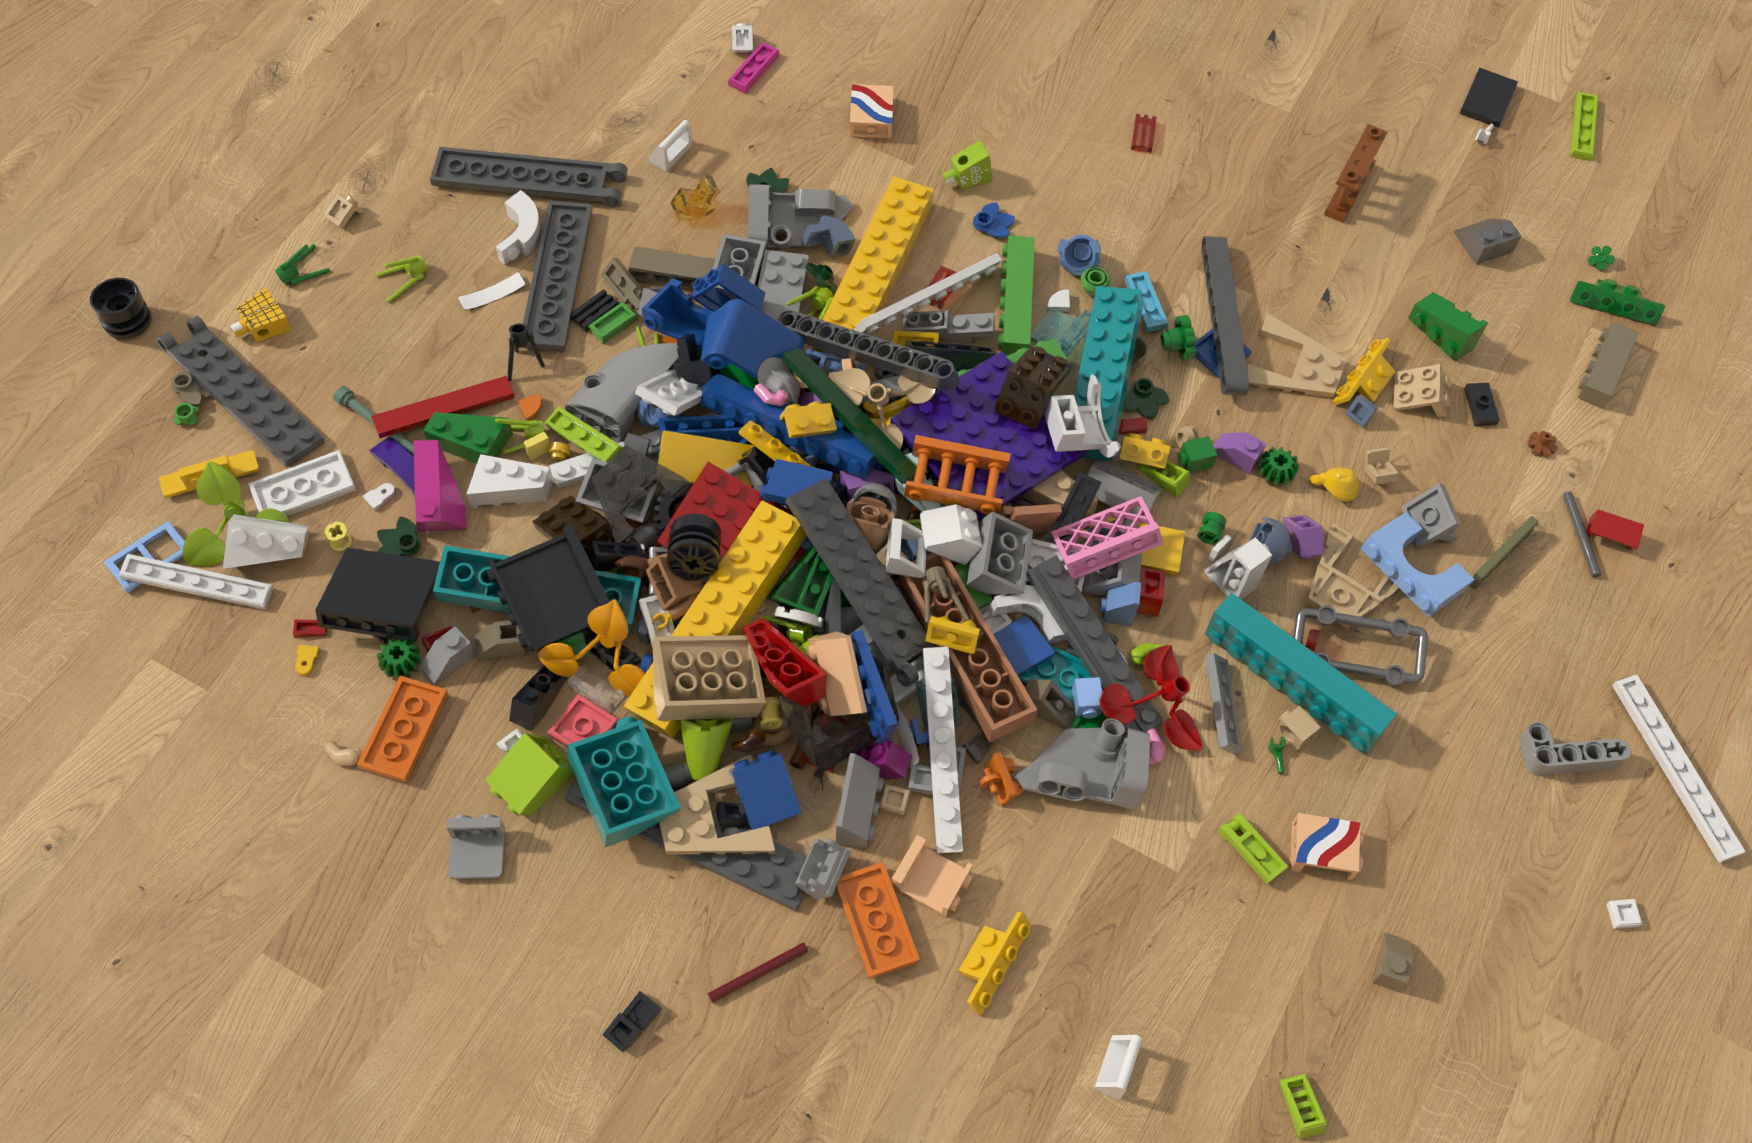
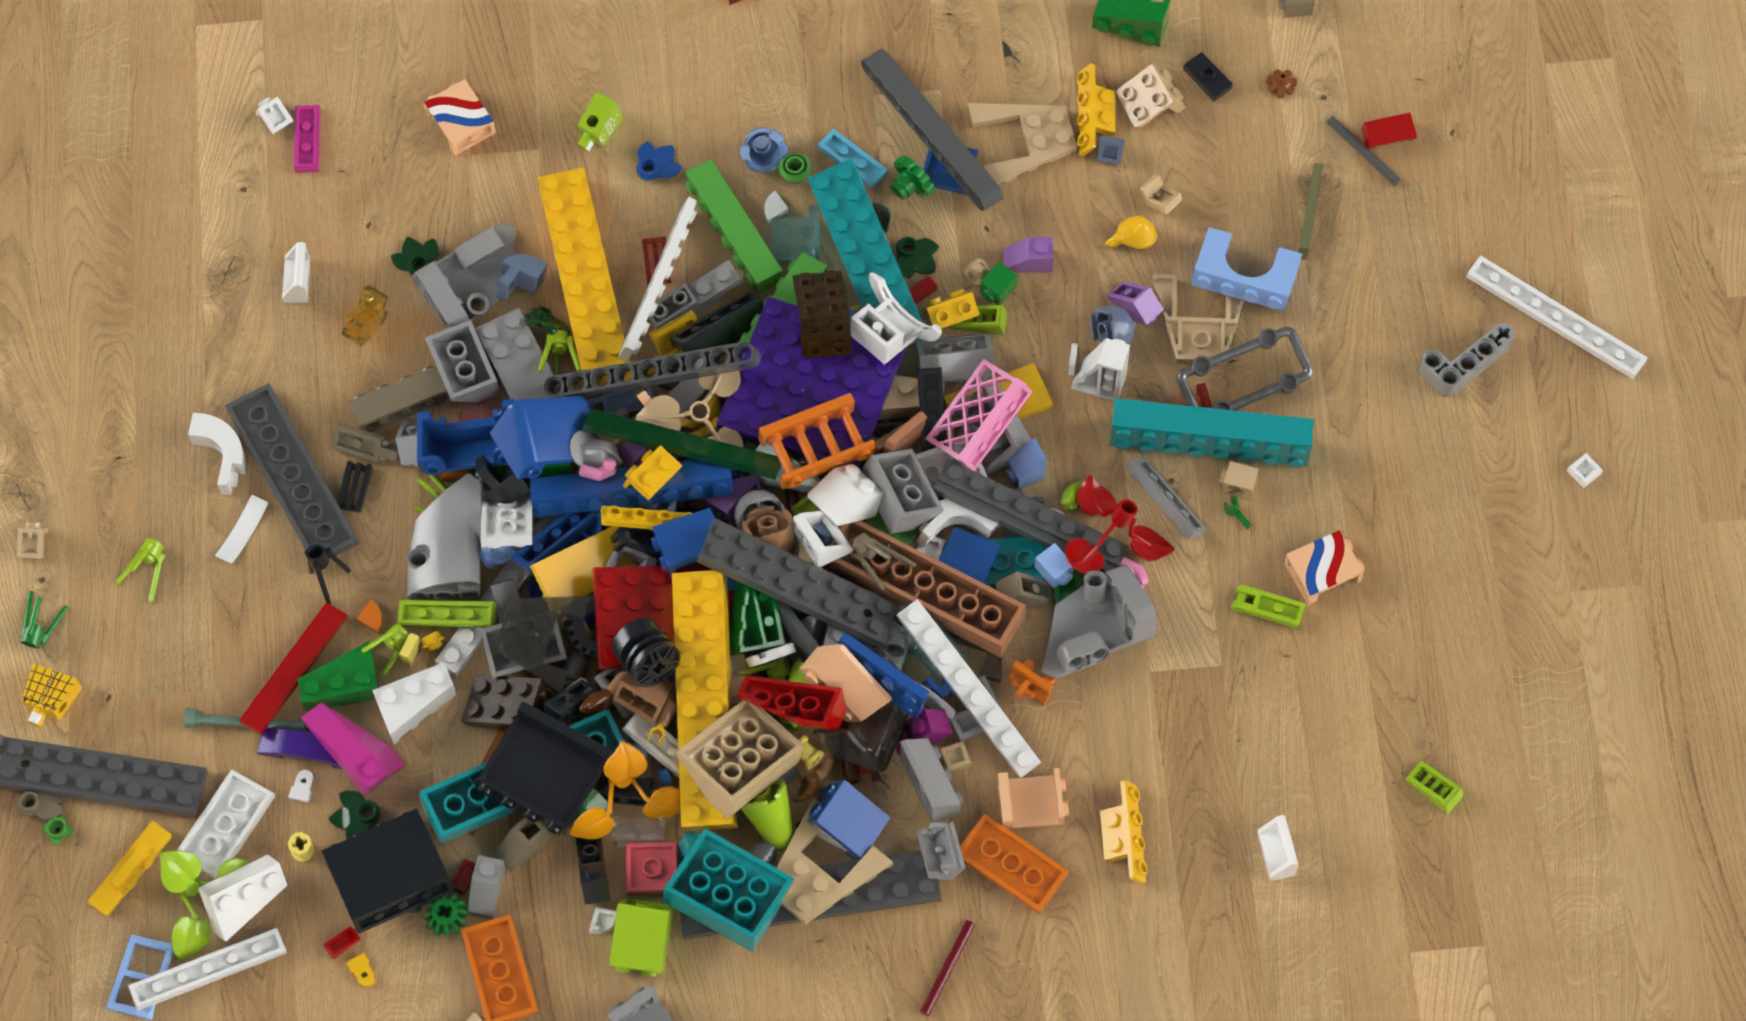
camera: 30 degrees left, 5 degrees up
(529, 174) = (179, 391): dark grey hinge -> none
(612, 322) = (380, 488): bright green tile -> none
(712, 299) = (462, 404): blue window -> none
(731, 814) = (832, 857): black tile -> none
(952, 634) = (915, 586): yellow tile -> none
(1151, 591) = (1039, 428): red plate -> none
(1212, 526) = (1055, 347): green wheel -> none
(1278, 466) = (1064, 250): green gear -> none
(1393, 963) = (1434, 627): dark tan slope -> none
(1435, 514) = (1233, 214): light grey bracket -> none

